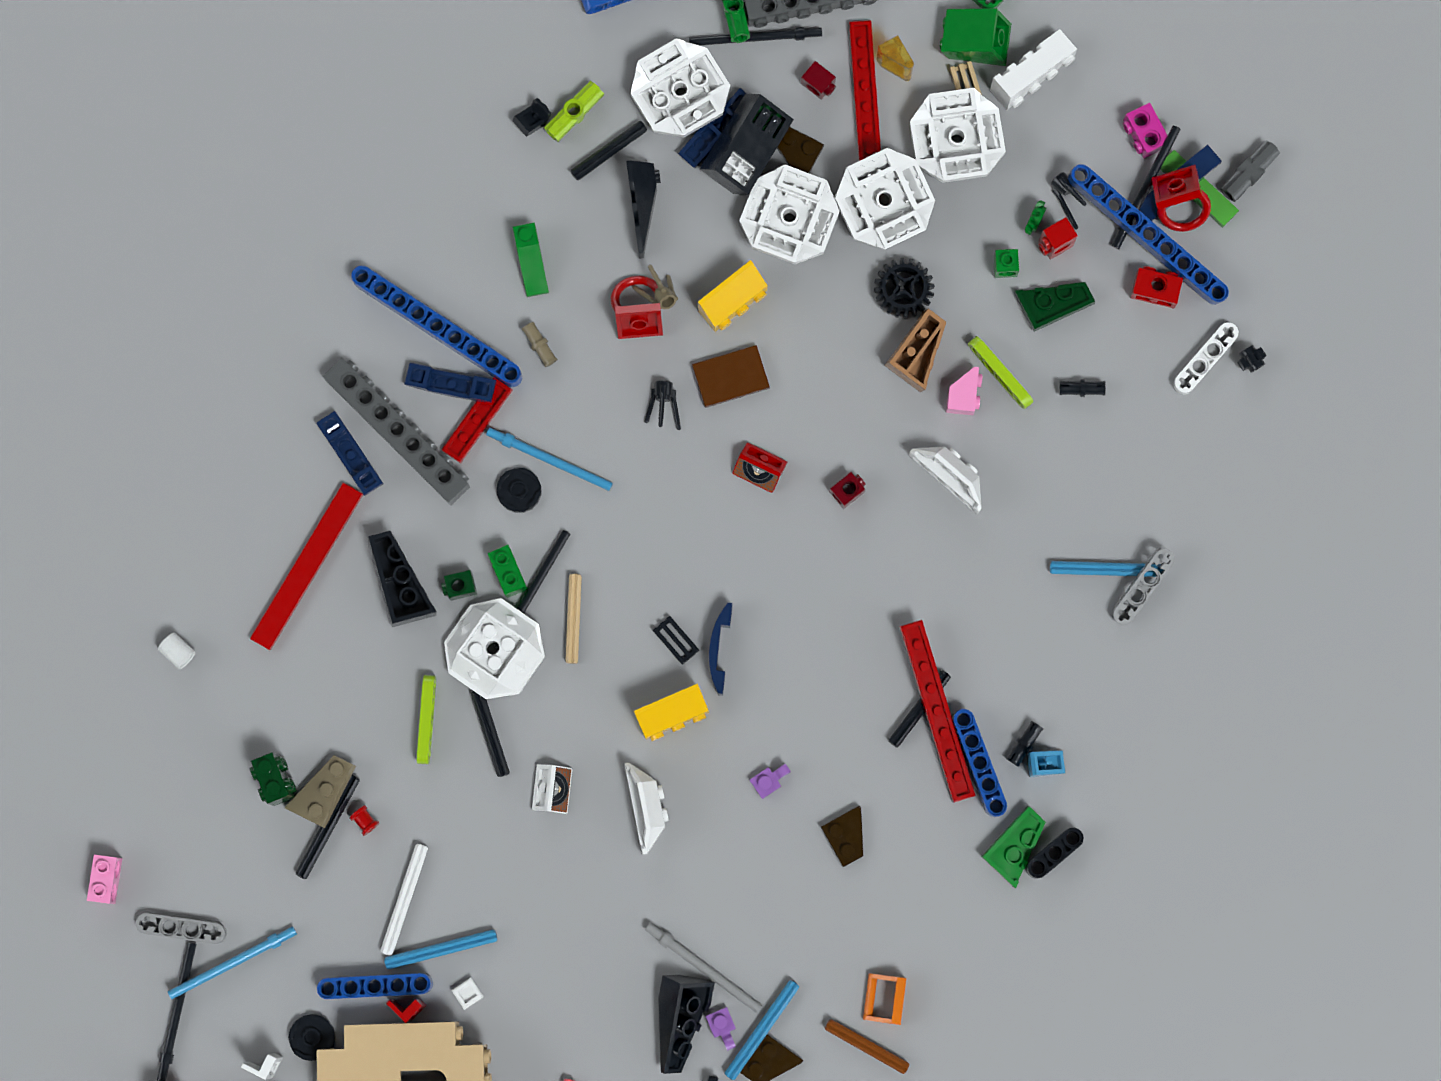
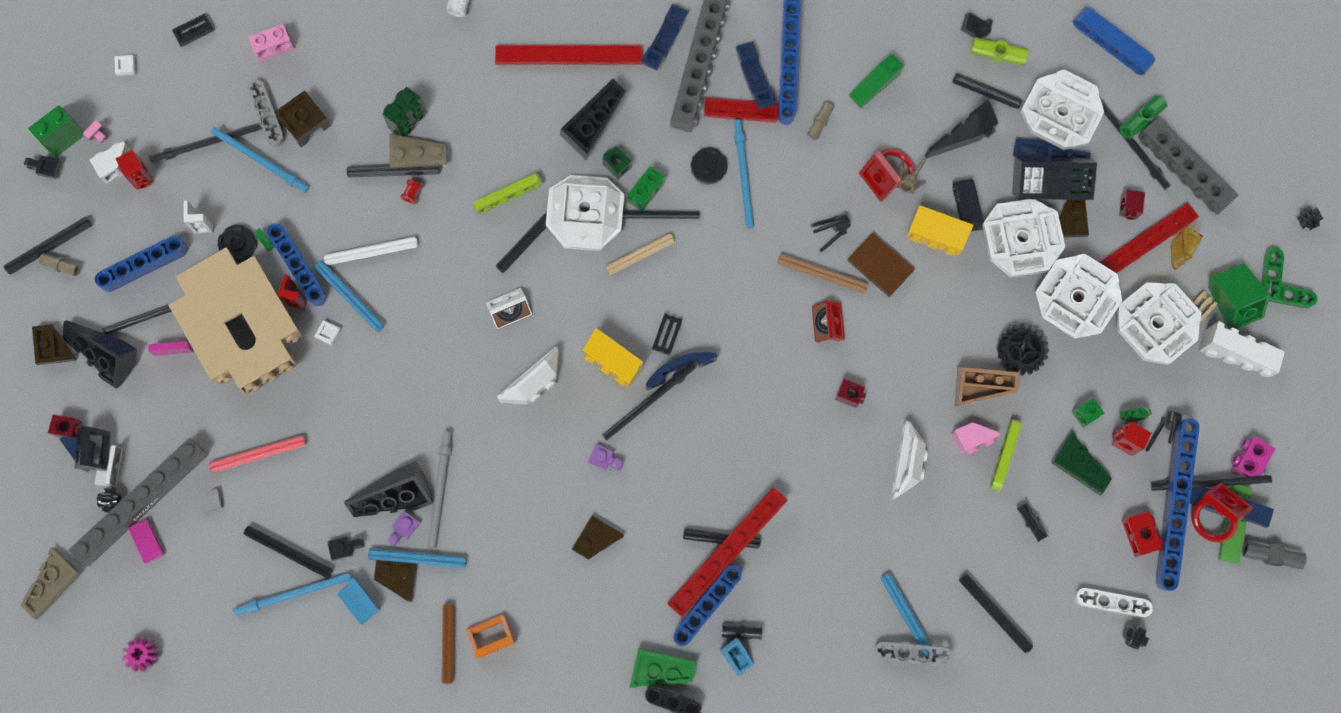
camera: 50 degrees right, 5 degrees down
(33, 1053) = (125, 65): none -> white tile
(44, 960) = (193, 33): none -> black tile
(212, 892) = (301, 117): none -> dark brown panel
(326, 1006) = (263, 239): none -> green tile
(705, 441) = (822, 273): none -> medium nougat axle
(720, 247) = (968, 203): none -> black beam
(728, 656) = (678, 378): none -> black bar
(1150, 480) = (992, 609): none -> black axle

